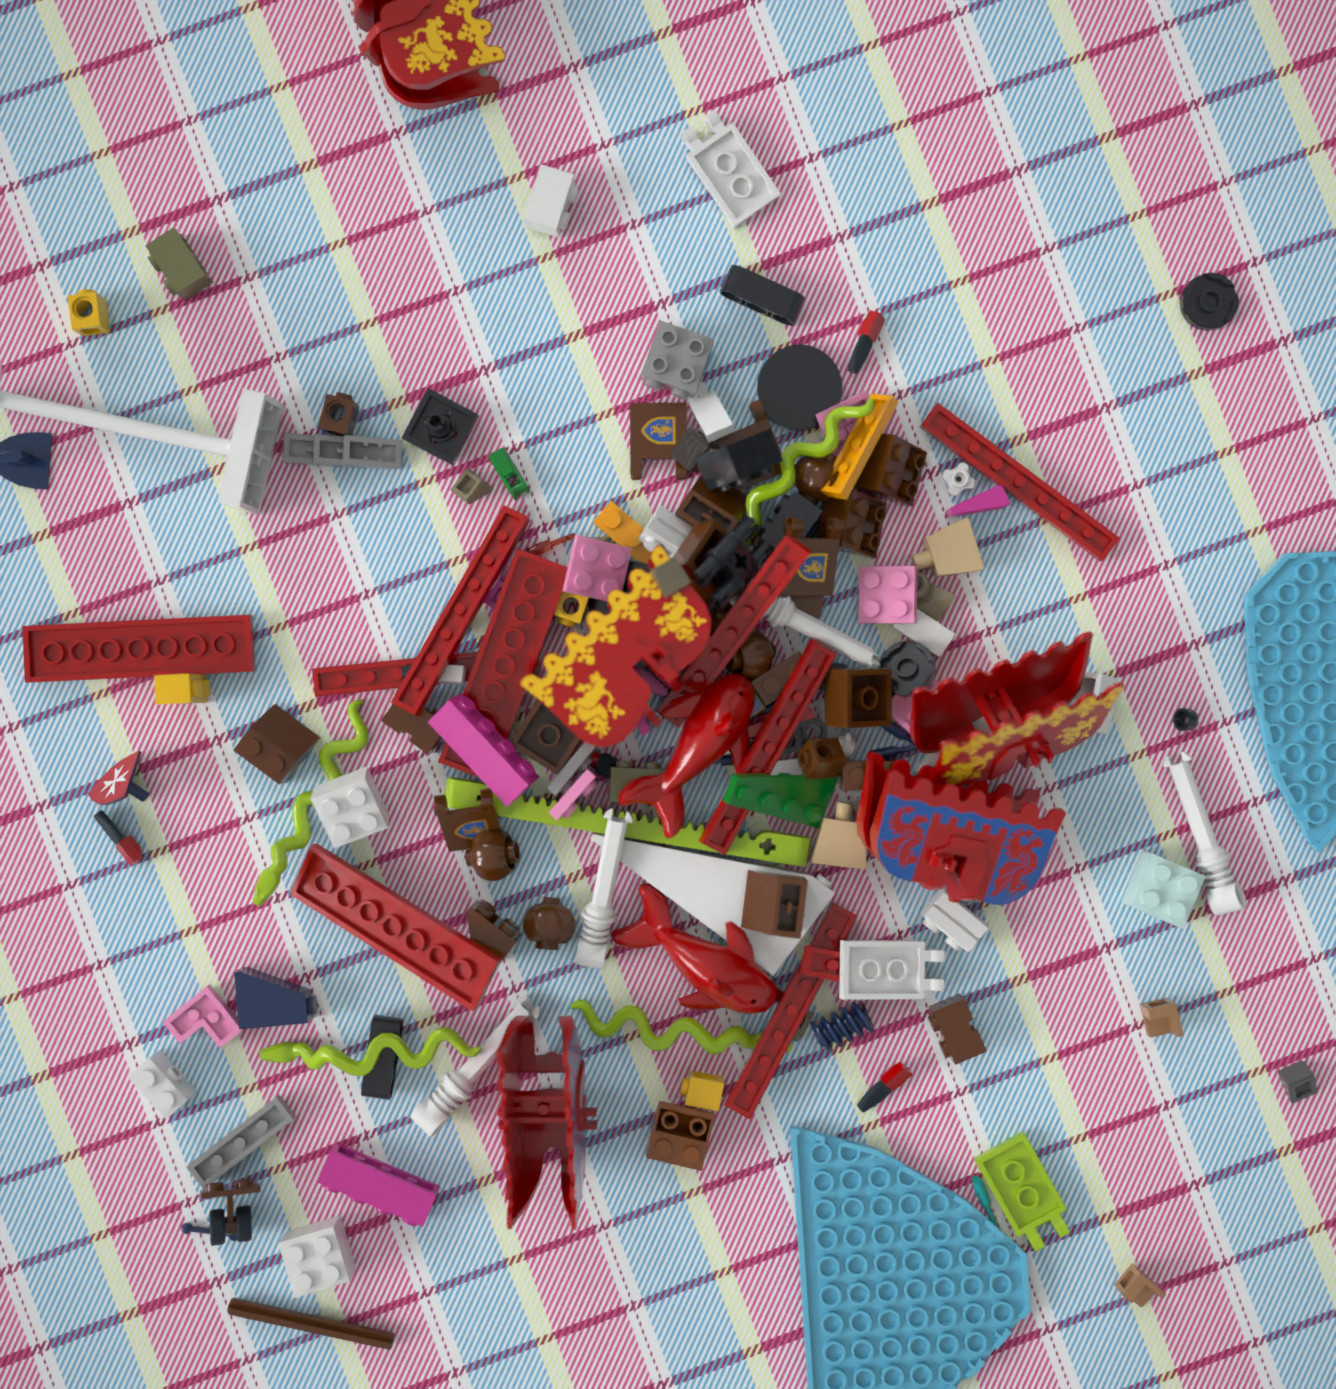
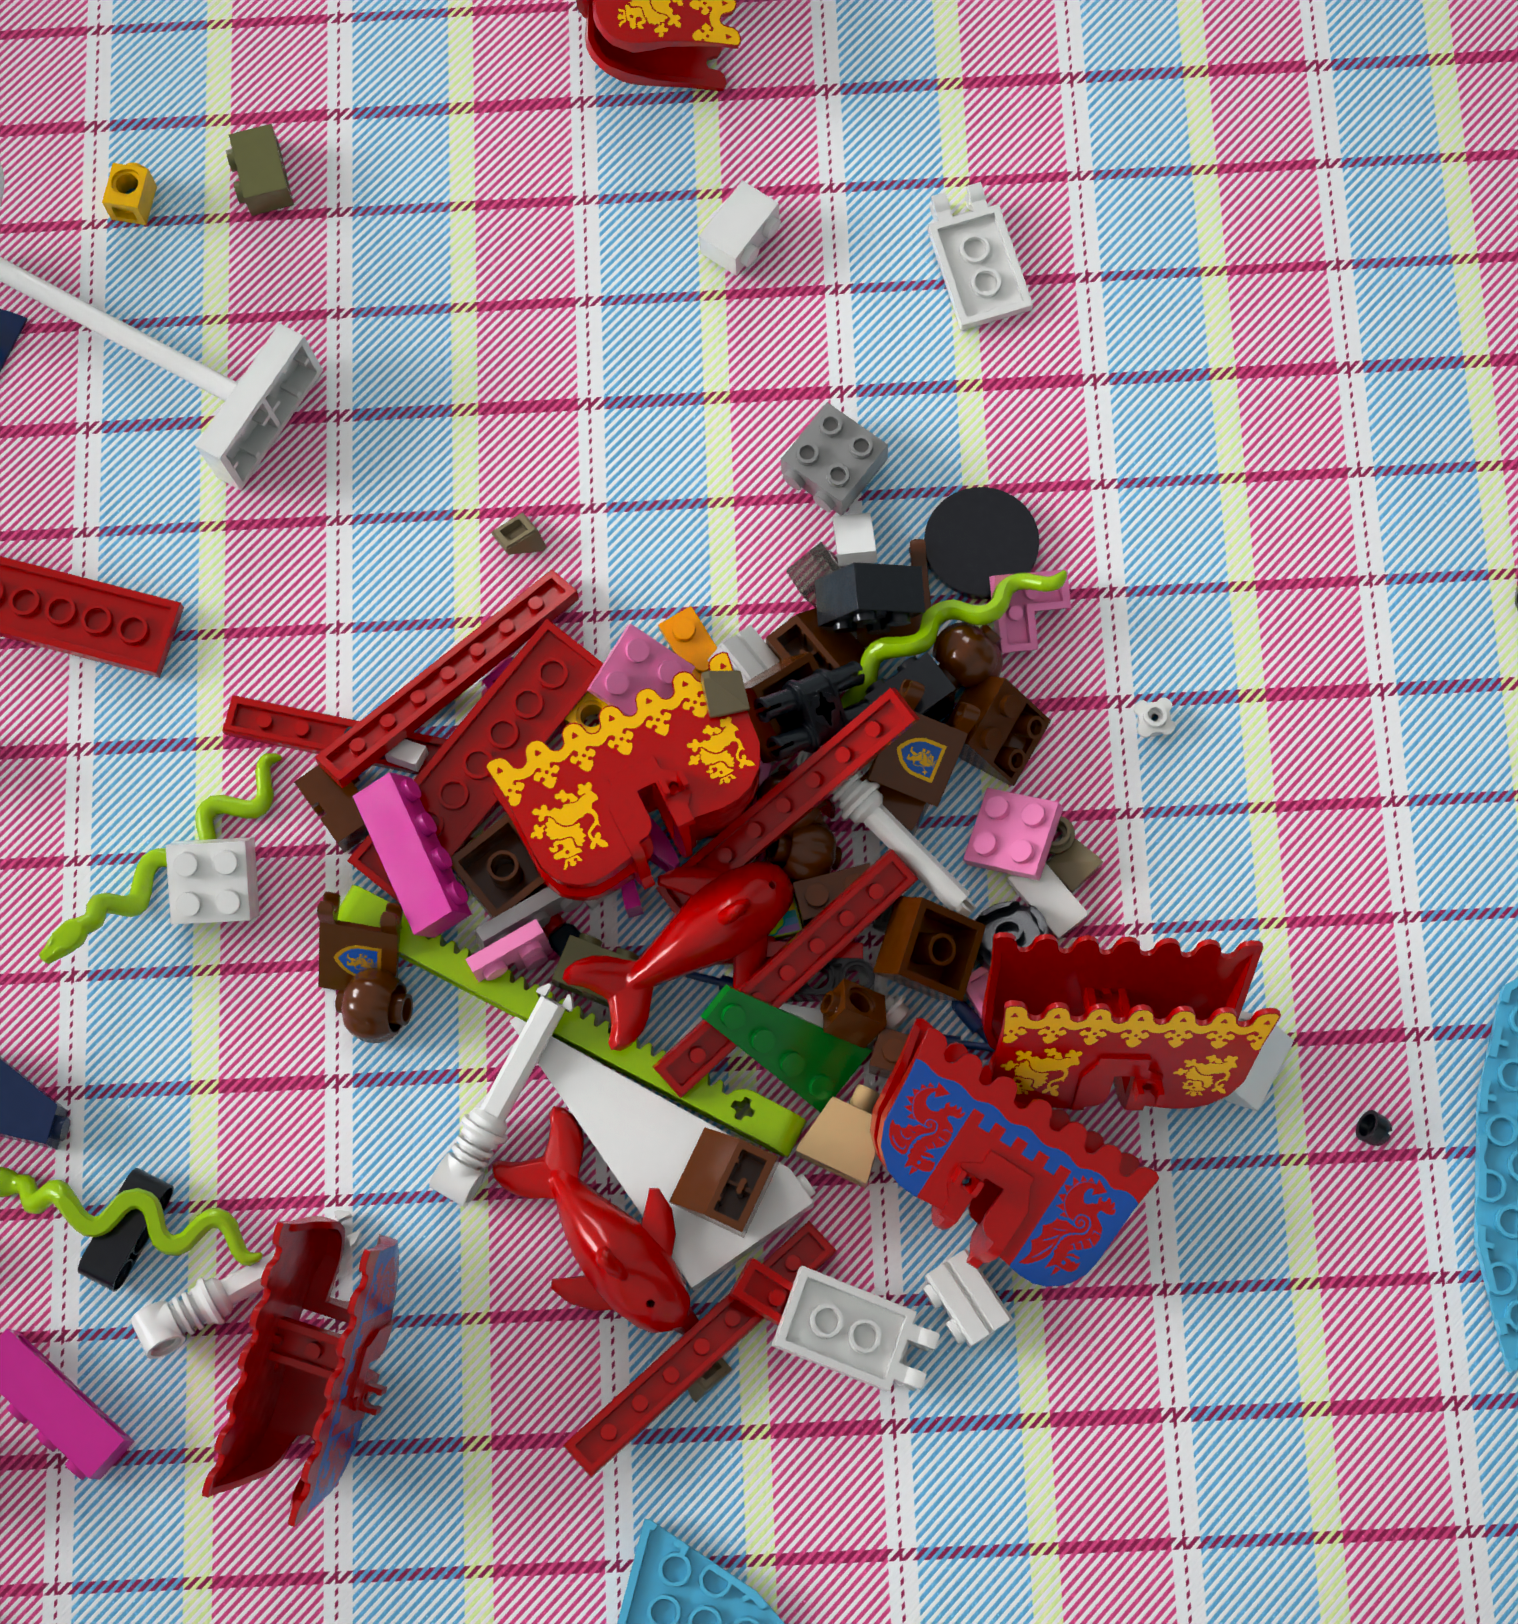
camera: 25 degrees right, 15 degrees down
(181, 689) = (58, 663): yellow brick -> none
(277, 744) = (150, 774): reddish brown slope -> none
(339, 427) = (389, 414): reddish brown brick -> none
(342, 451) = (373, 444): light grey slope -> none
(395, 927) = (211, 1050): red plate -> none
(432, 410) = (505, 430): black plate -> none
(491, 930) = (329, 1107): reddish brown slope -> none
(506, 470) = (571, 531): green bar -> none
(546, 545) = (589, 637): clear red piece -> none
(549, 924) = (414, 1122): reddish brown plant -> none
(655, 433) = (774, 542): reddish brown flag -> none
(680, 1135) = (488, 1470): dark orange slope -> none
(703, 1090) = (541, 1422): yellow brick -> none
(711, 1044) = (567, 1343): lime animal -> none
(762, 295) = (969, 416): black beam -> none
(842, 1026) = (764, 1396): dark blue piece -> none
(860, 446) = (1033, 627): light orange plate -> none
(867, 335) = (1089, 505): piece -> none
(891, 1080) = (794, 1506): piece -> none
(893, 470) = (1067, 675): reddish brown slope -> none
(950, 551) = (1114, 804): tan torso -> none
(952, 1021) = (920, 1444): reddish brown brick -> none
(986, 501) = (1180, 755): dark pink slope -> none
(1019, 482) = (1235, 747): red plate -> none
(1161, 1018) = (1220, 1539): medium nougat panel -> none
(1163, 889) = (1274, 1351): light aqua brick -> none
(1223, 894) = (1359, 1385): white piece -> none

